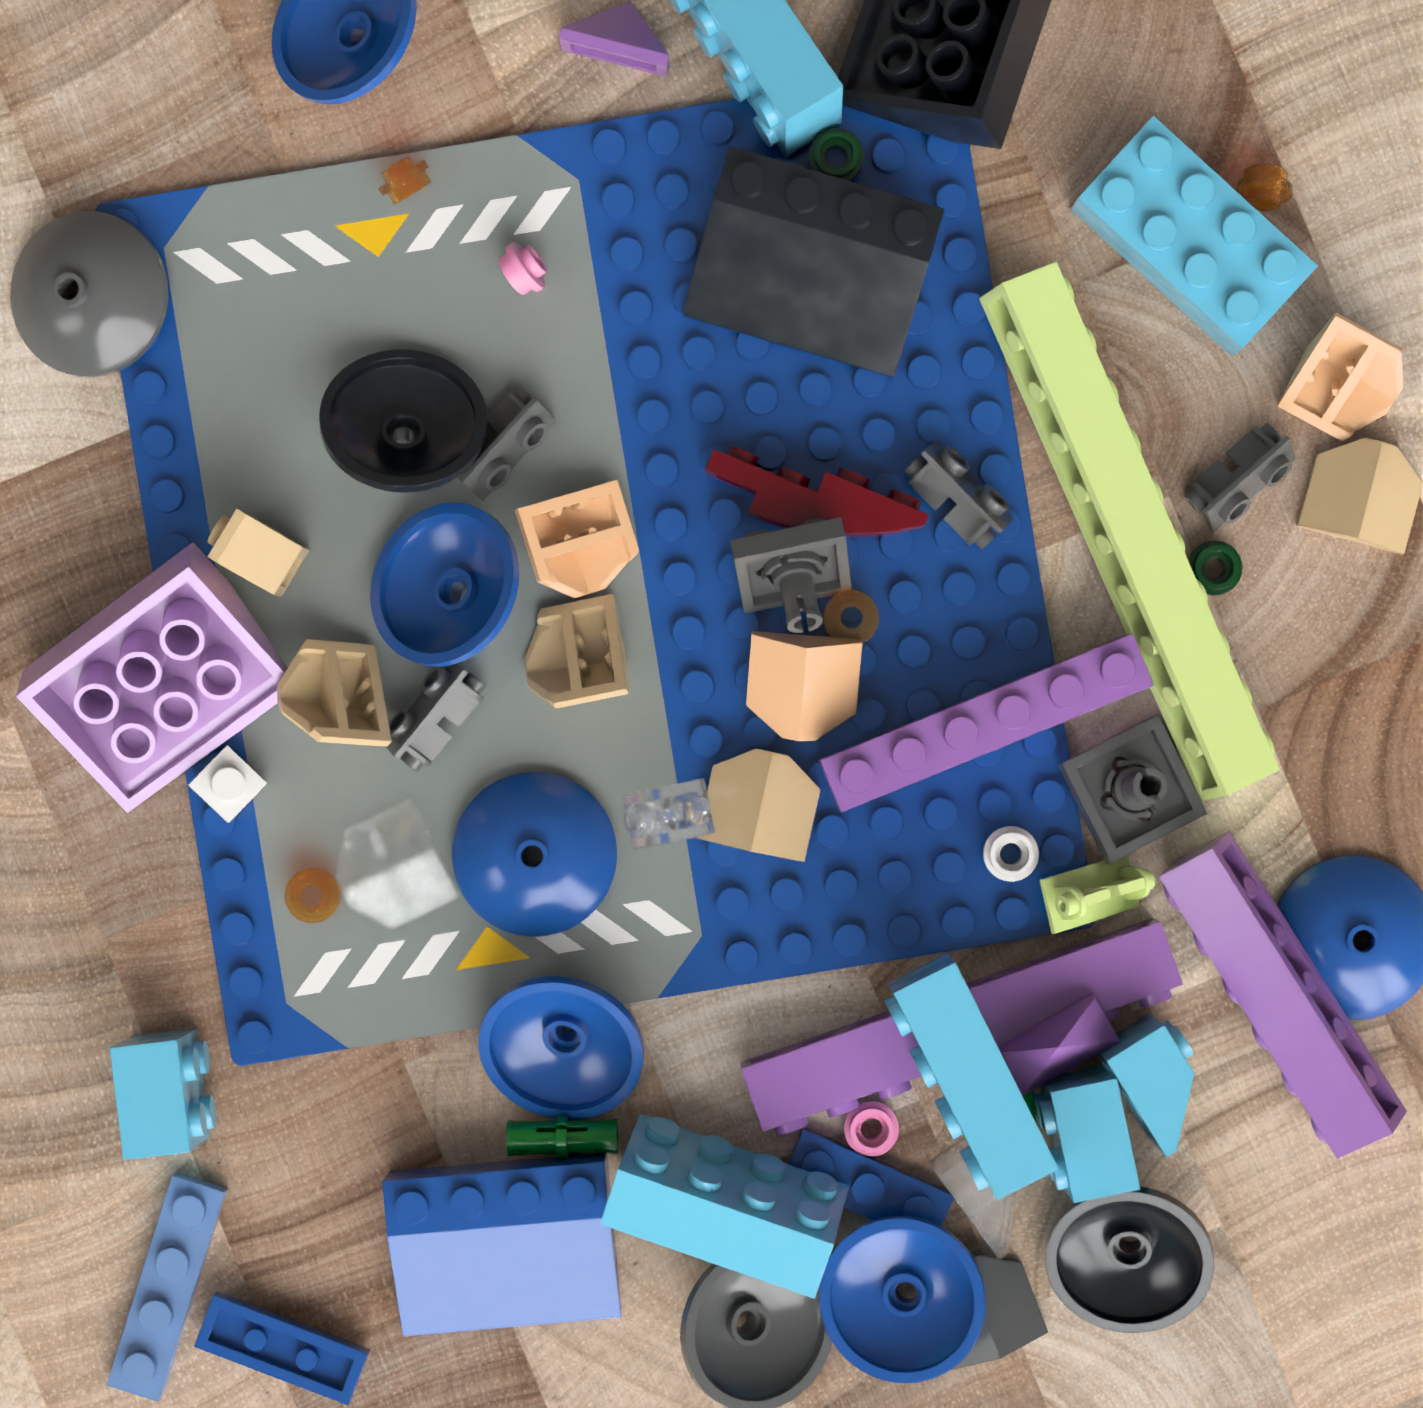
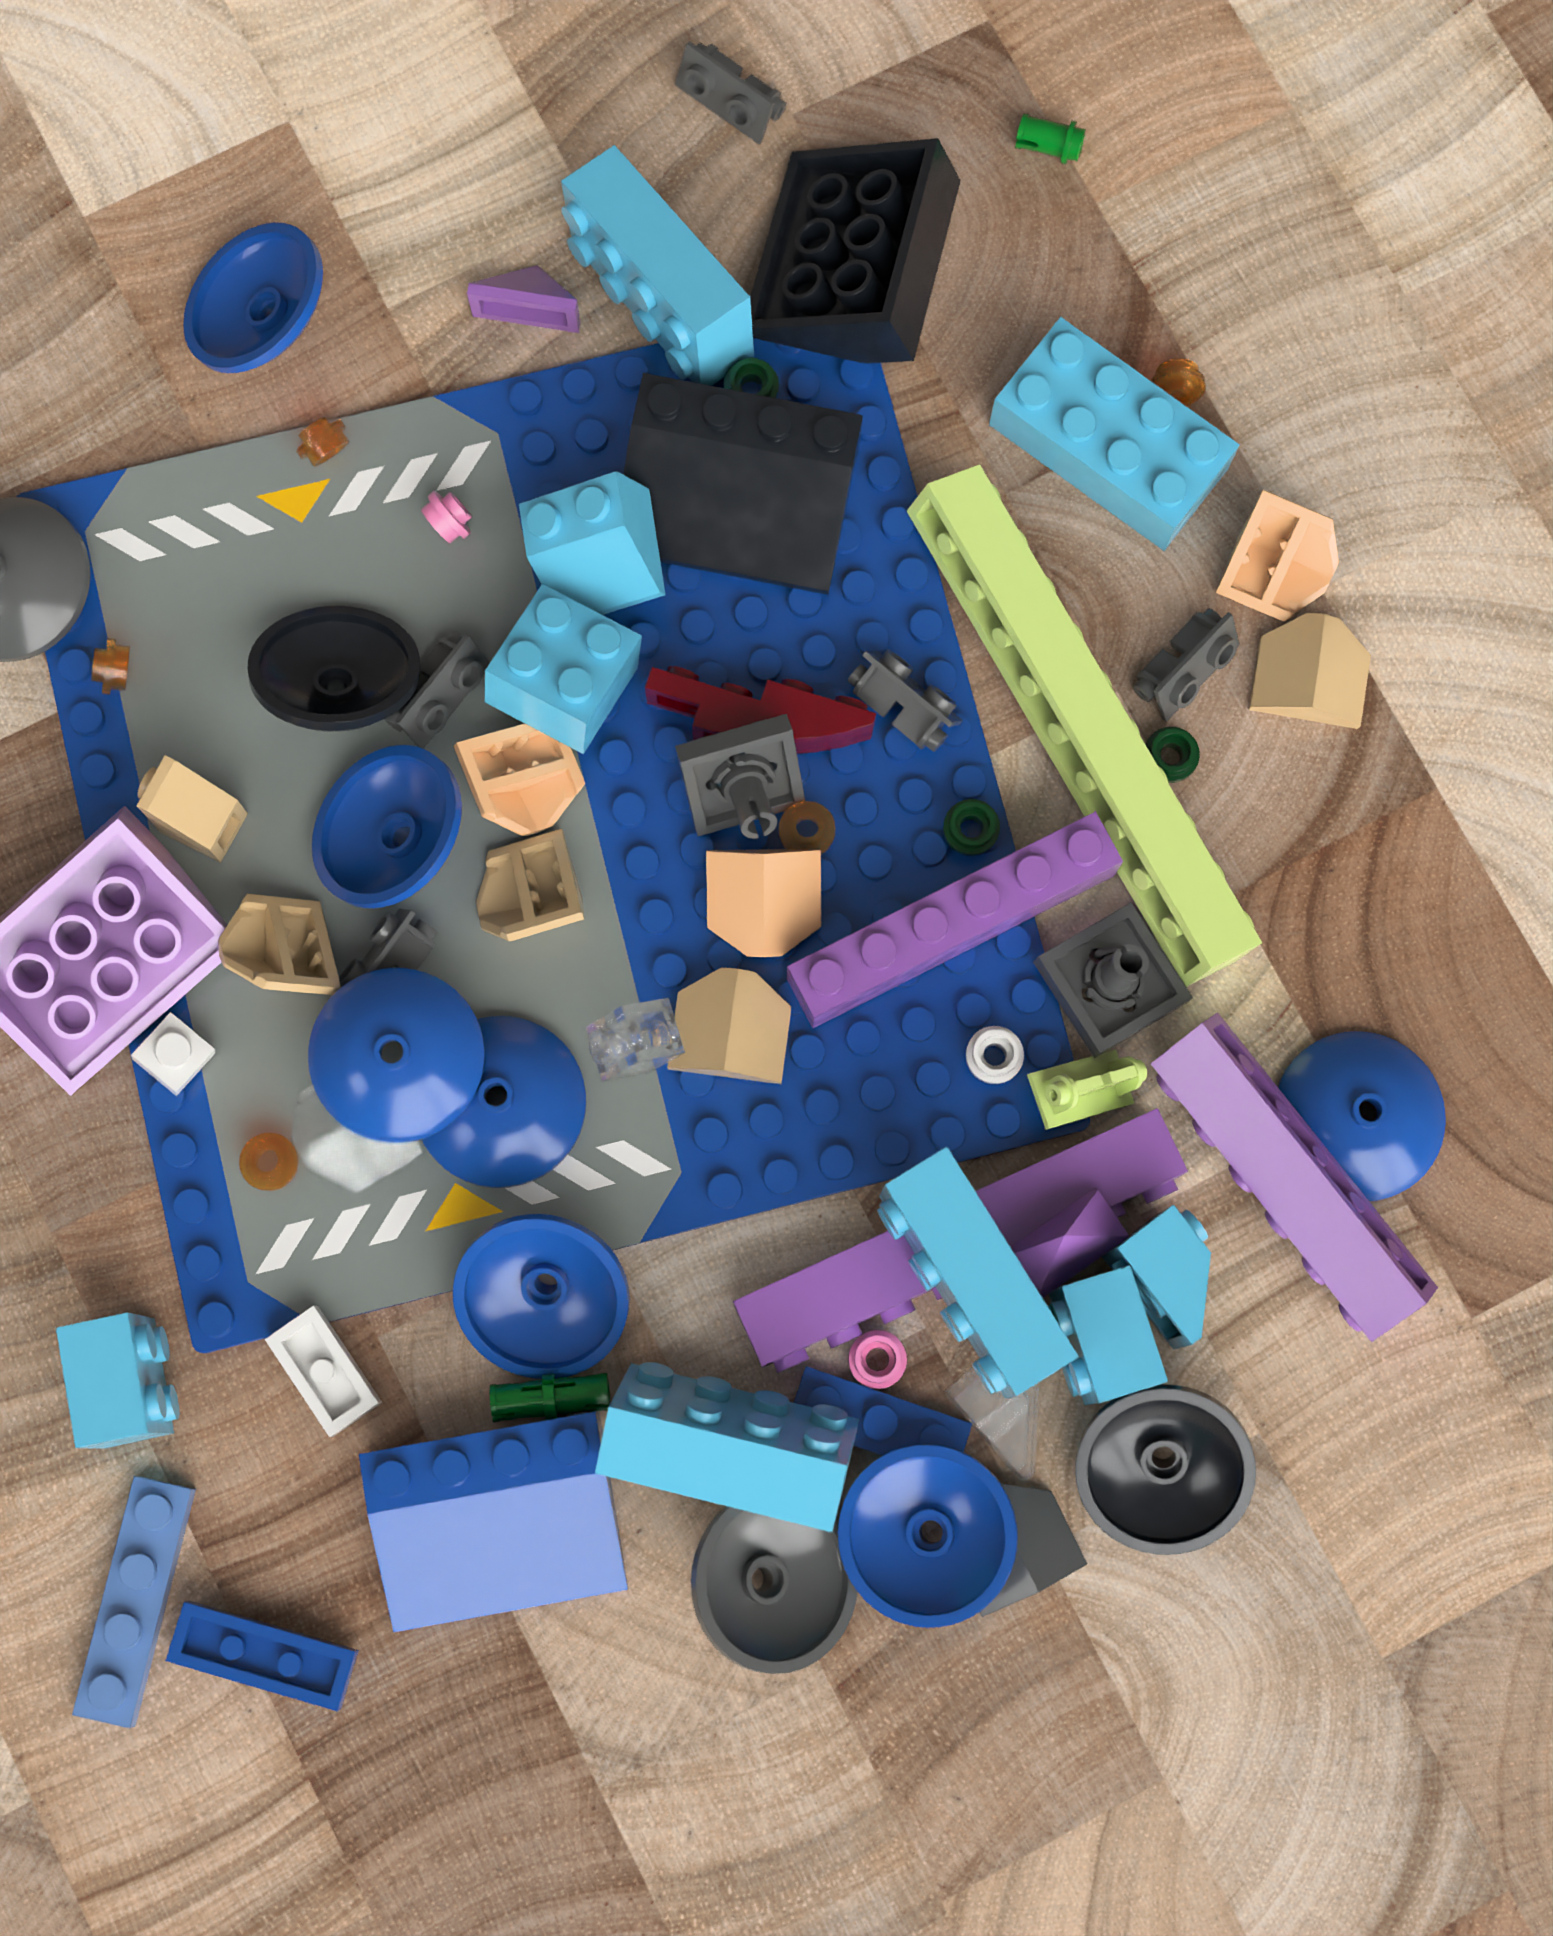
camera: 10 degrees left, 10 degrees down
(185, 396) = (111, 666): none -> clear orange plate
(353, 1094) = (323, 1371): none -> white plate
(446, 770) = (438, 1064): none -> blue dish
(626, 440) = (562, 668): none -> medium azure brick
(667, 320) = (595, 543): none -> medium azure slope
(1028, 628) = (979, 812): none -> dark green plate

